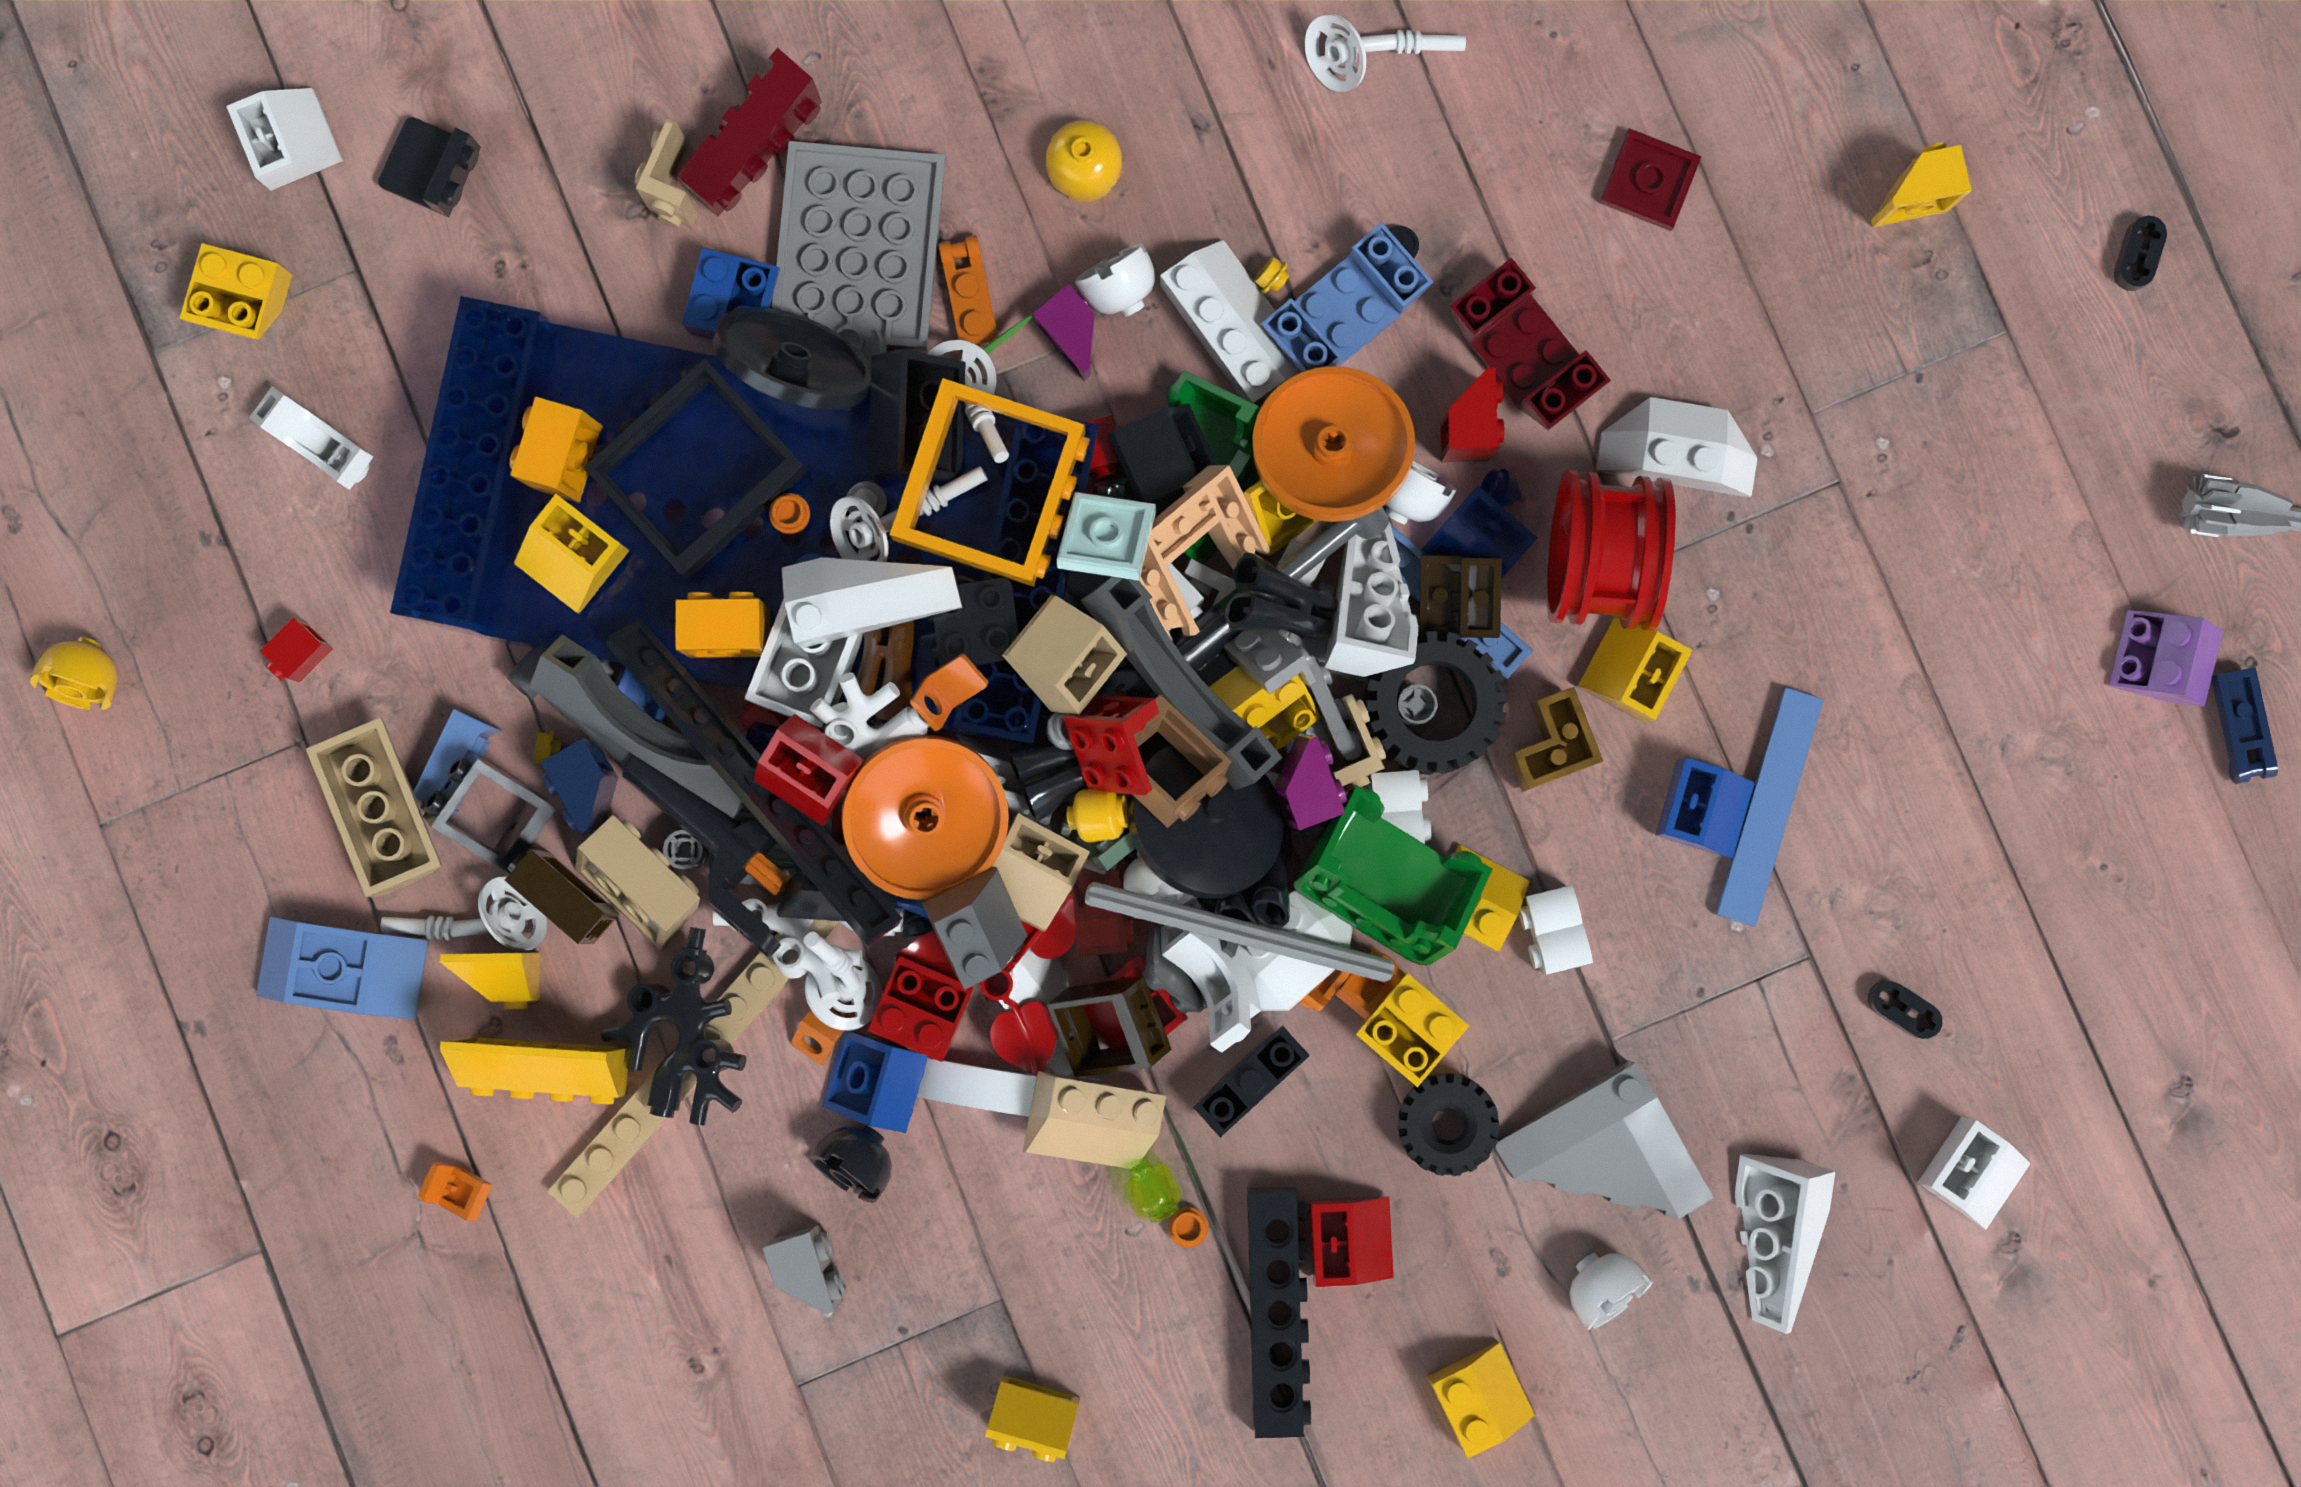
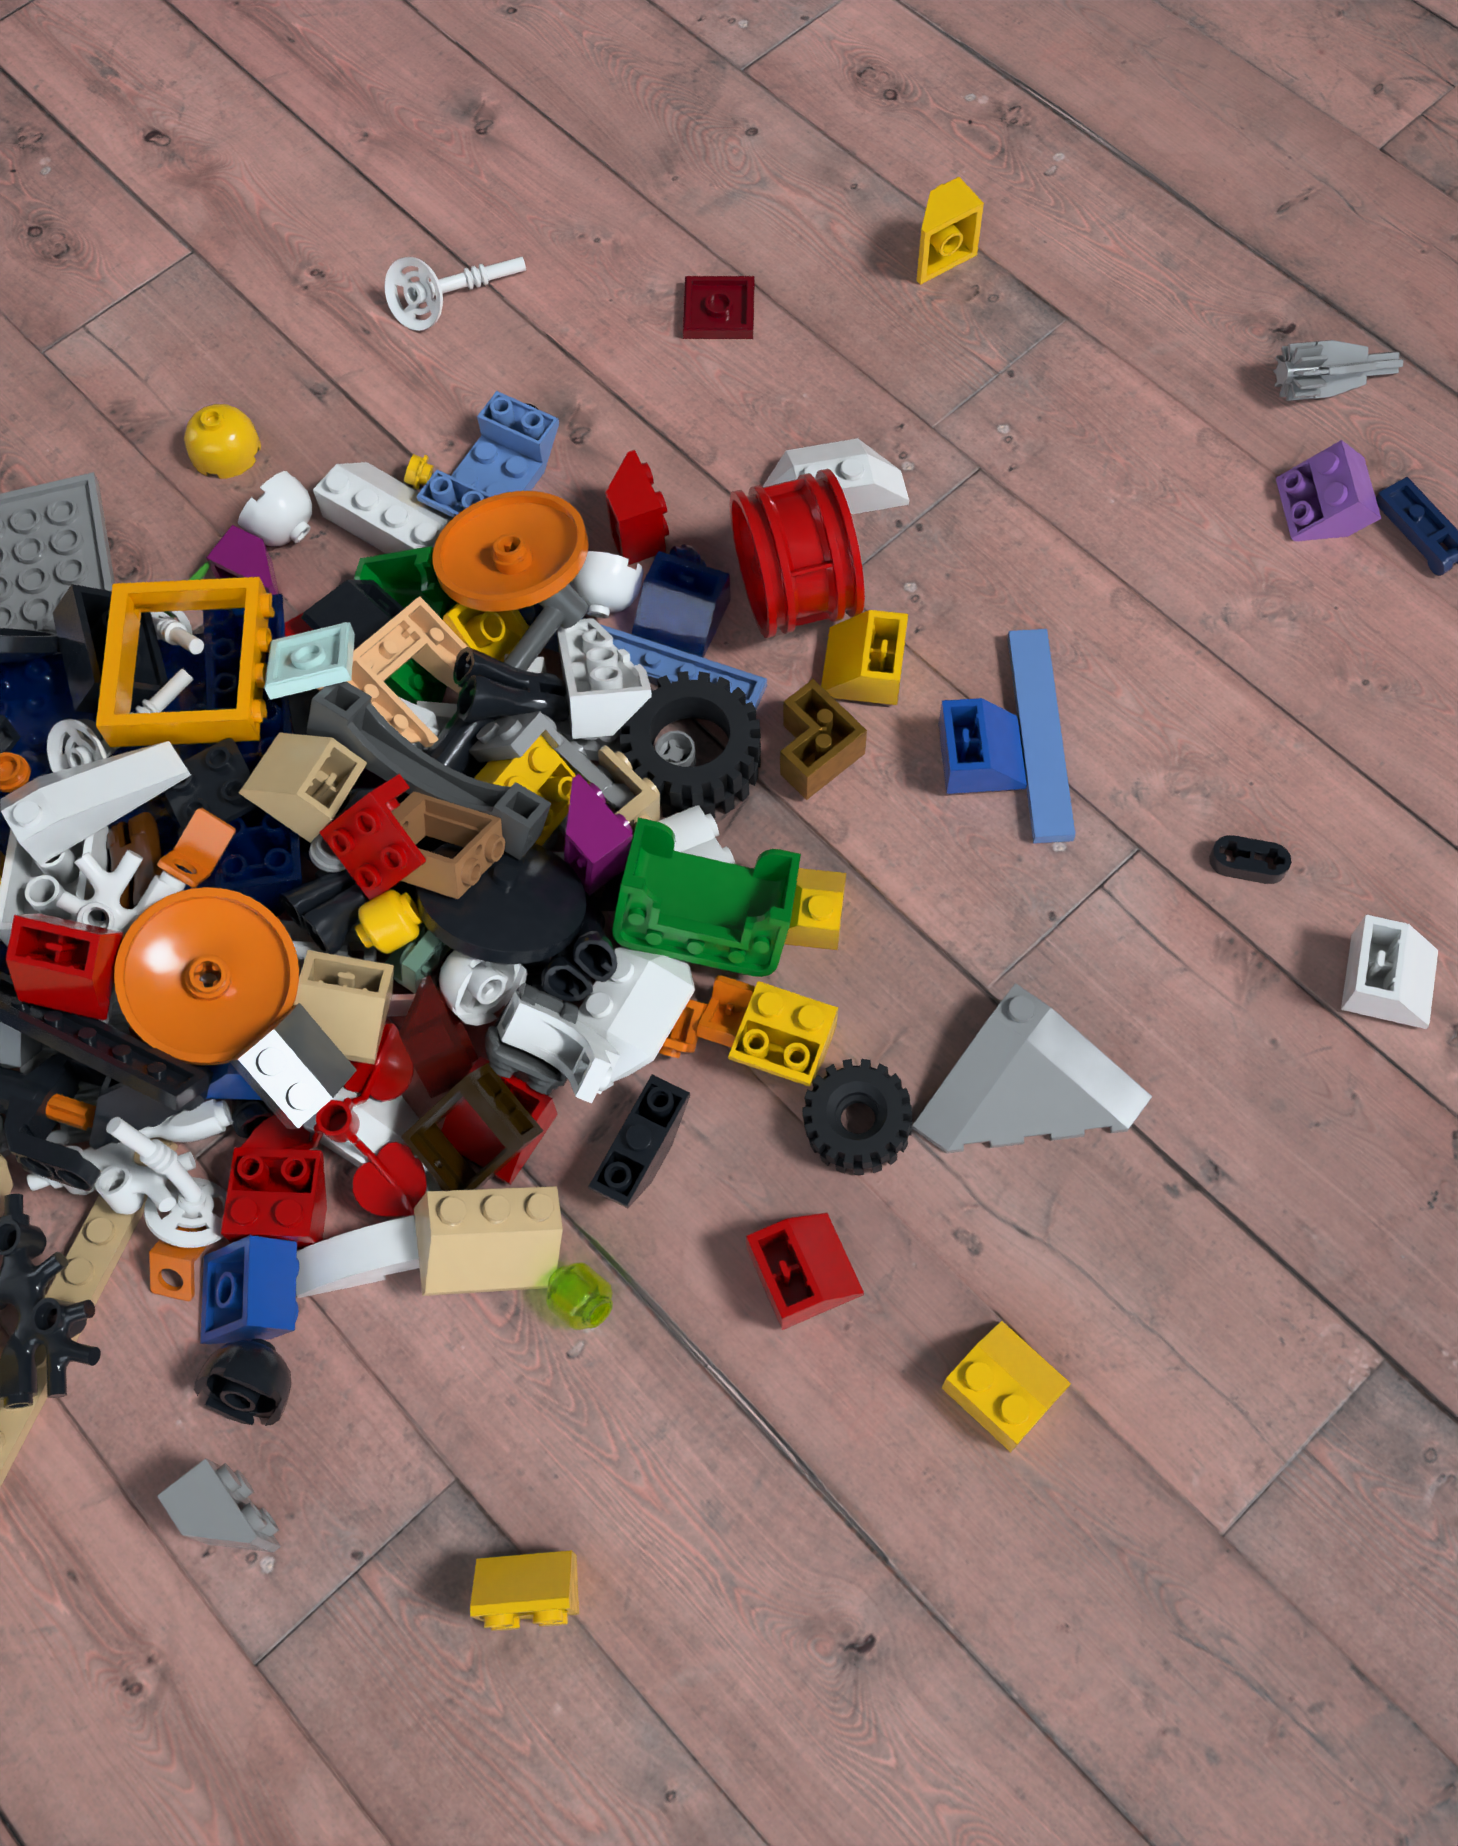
camera: 15 degrees left, 20 degrees down
(969, 292) = (144, 565): orange plate -> none
(1188, 1227) = (630, 1322): orange plate -> none
(1238, 931) = (568, 987): light grey axle -> none
(1270, 1417) = (788, 1489): black brick -> none
(1460, 595) = (679, 643): dark brown slope -> none
(1526, 347) = (680, 461): dark red slope -> none
(1555, 930) = (889, 903): white brick -> none
(1606, 1287) = (1084, 1216): white cylinder -> none
(1783, 1221) = (1232, 1093): white wedge -> none
(2148, 256) = (1140, 230): black beam -> none

